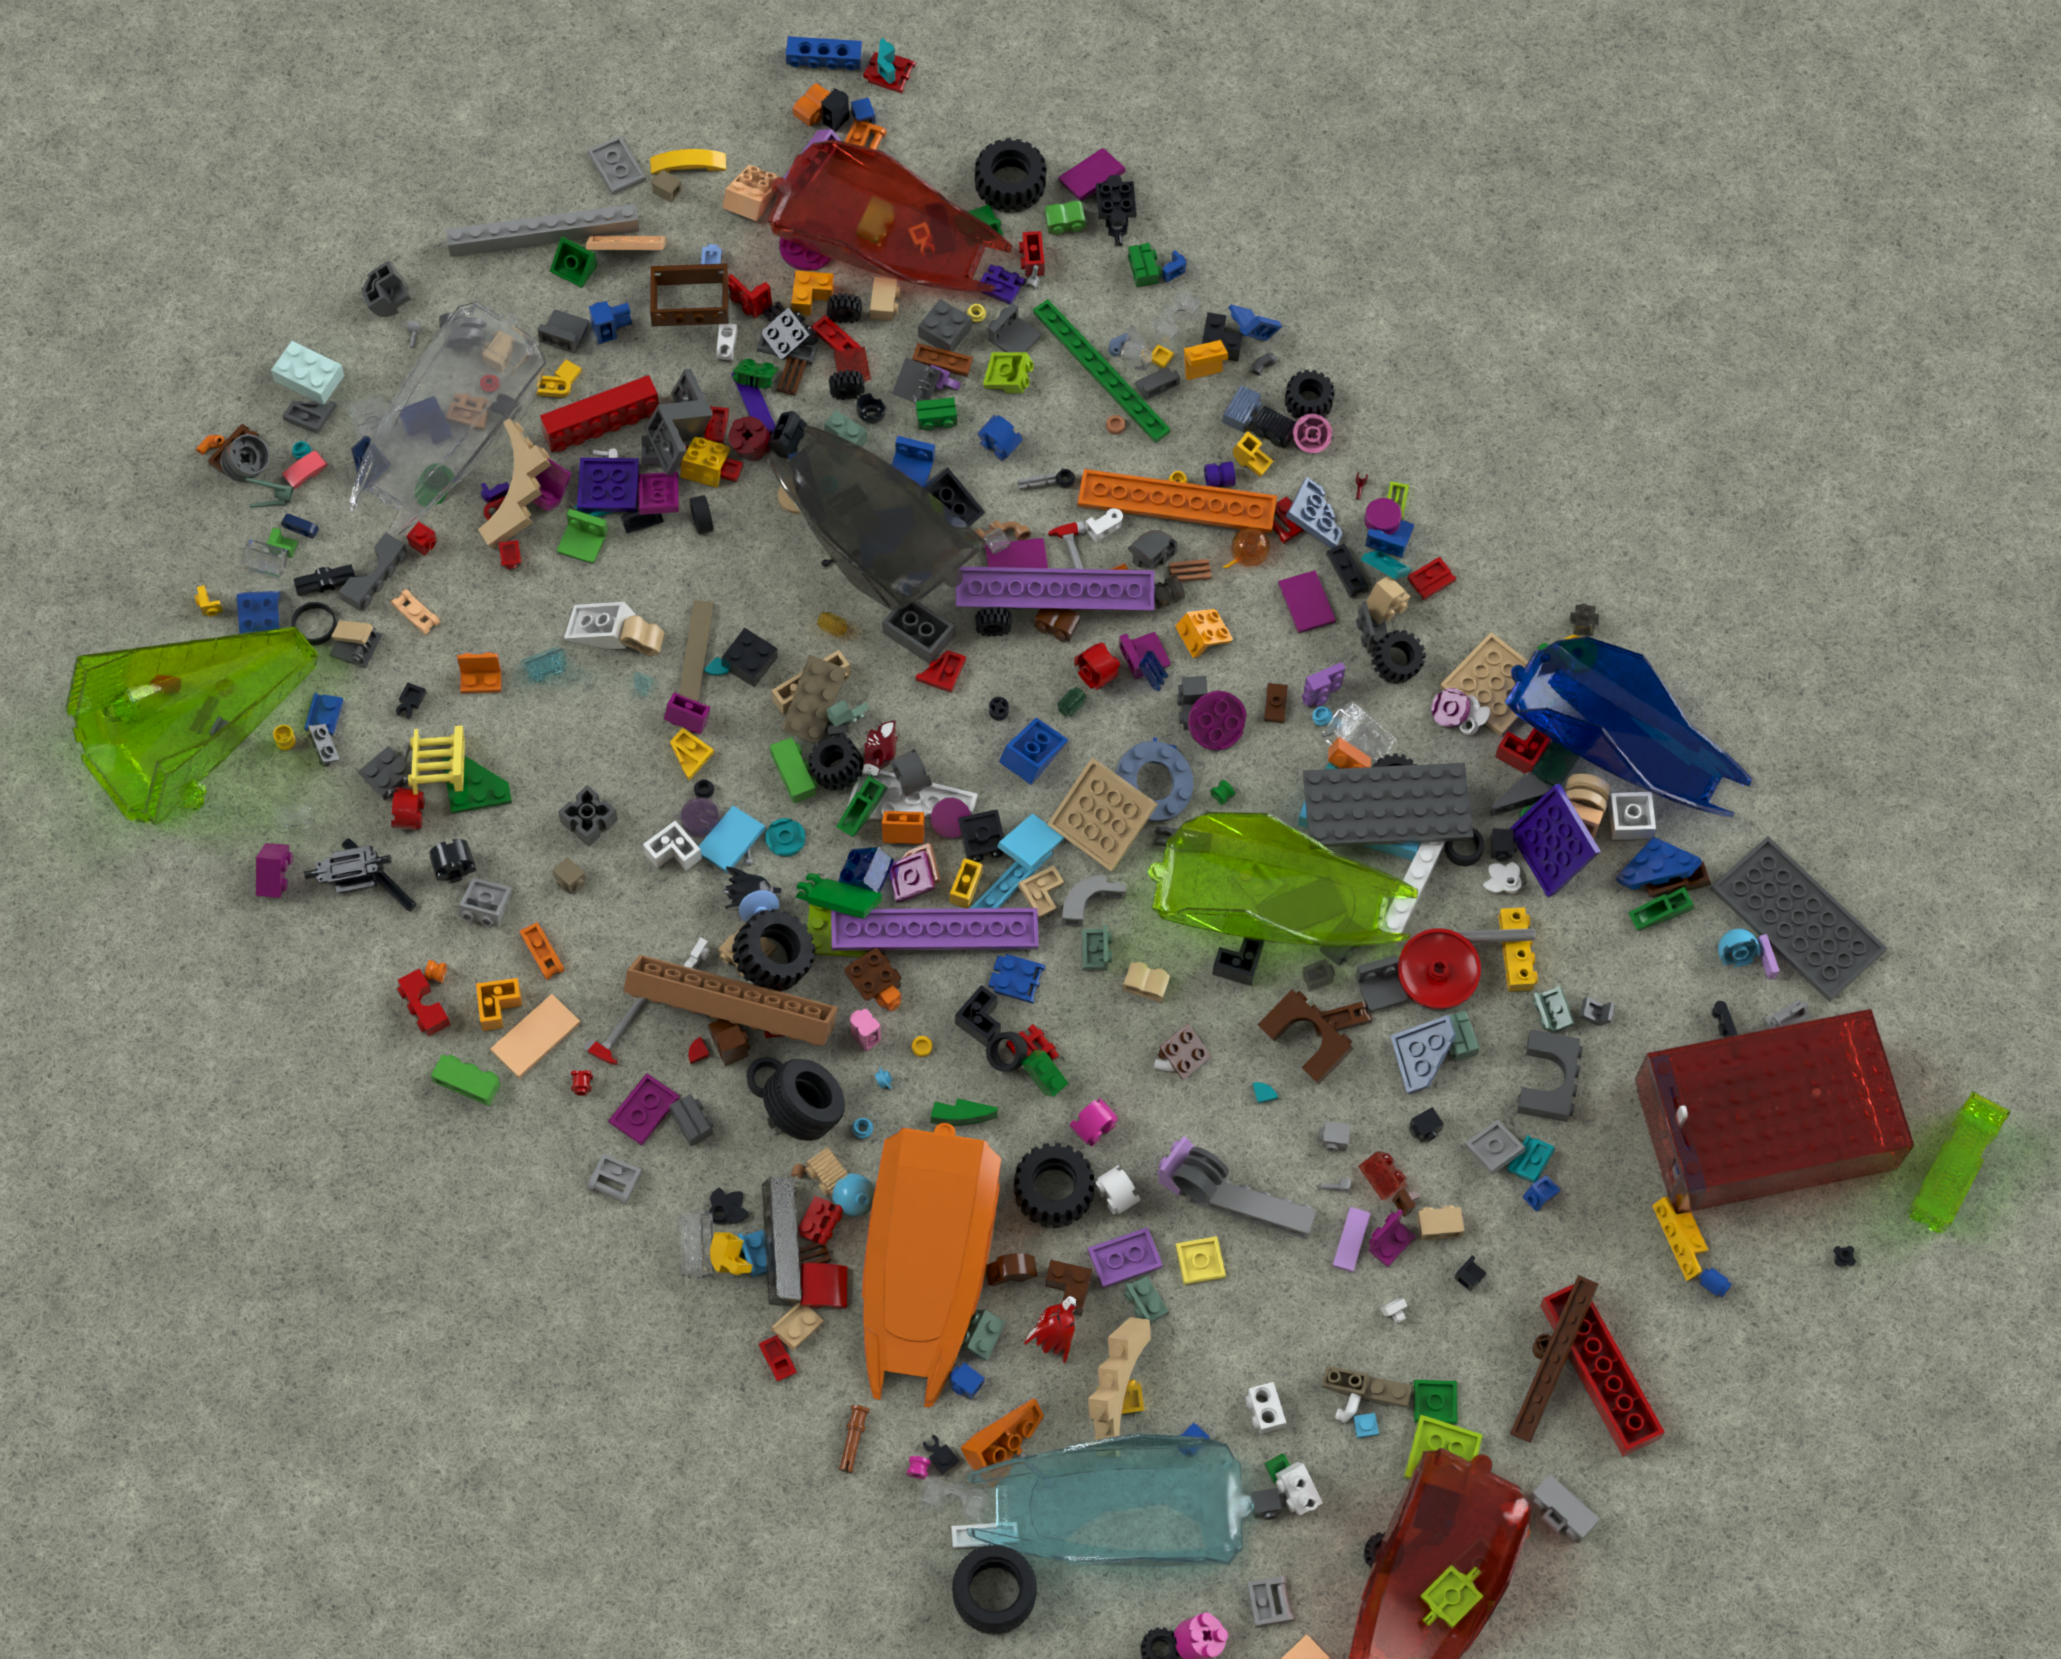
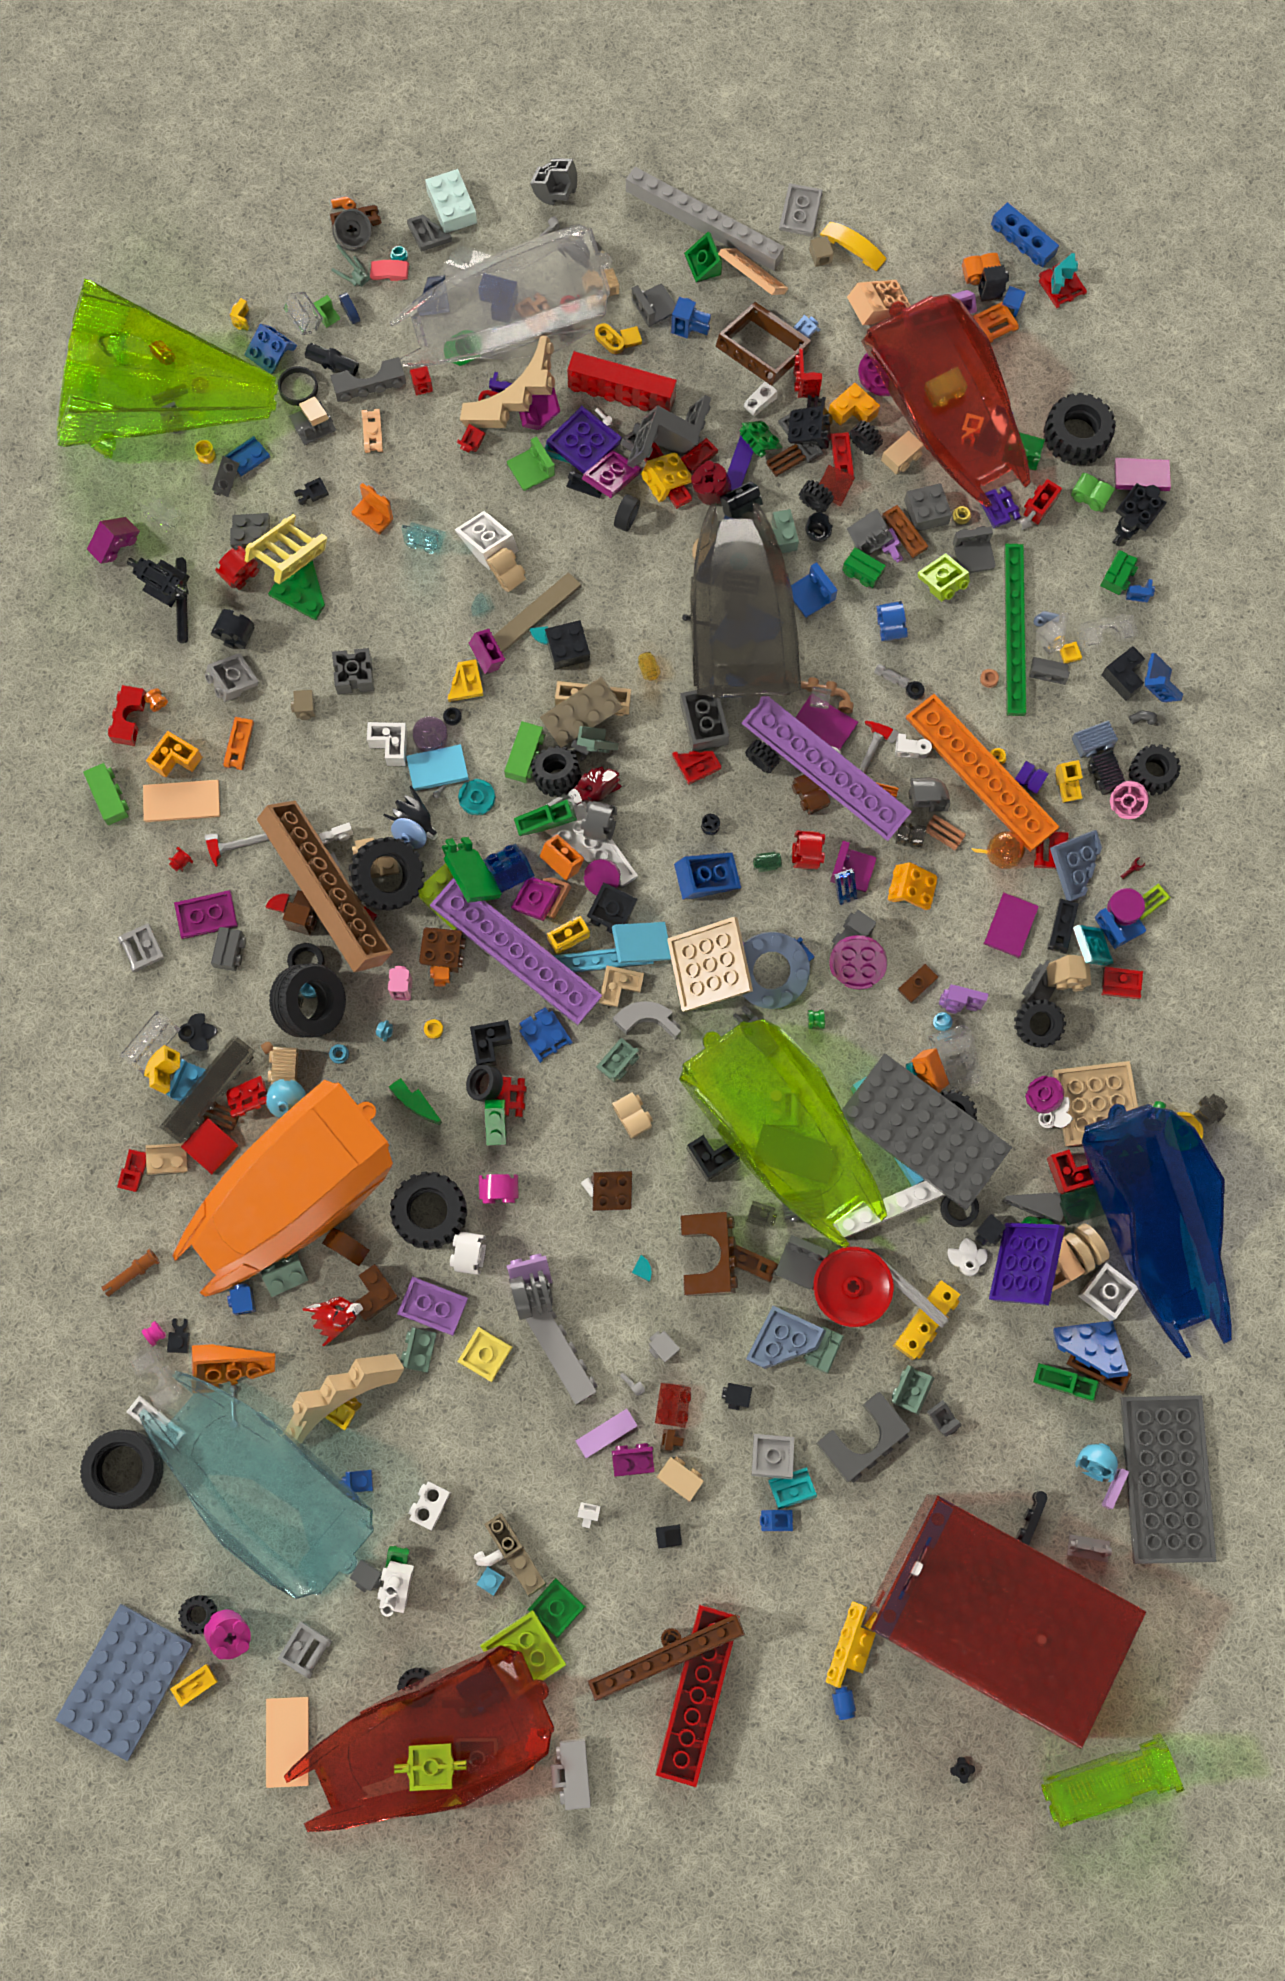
camera: 40 degrees right, 10 degrees up
(954, 495) = (815, 642): black slope -> none
(1204, 359) = (1097, 679): light orange bracket -> none

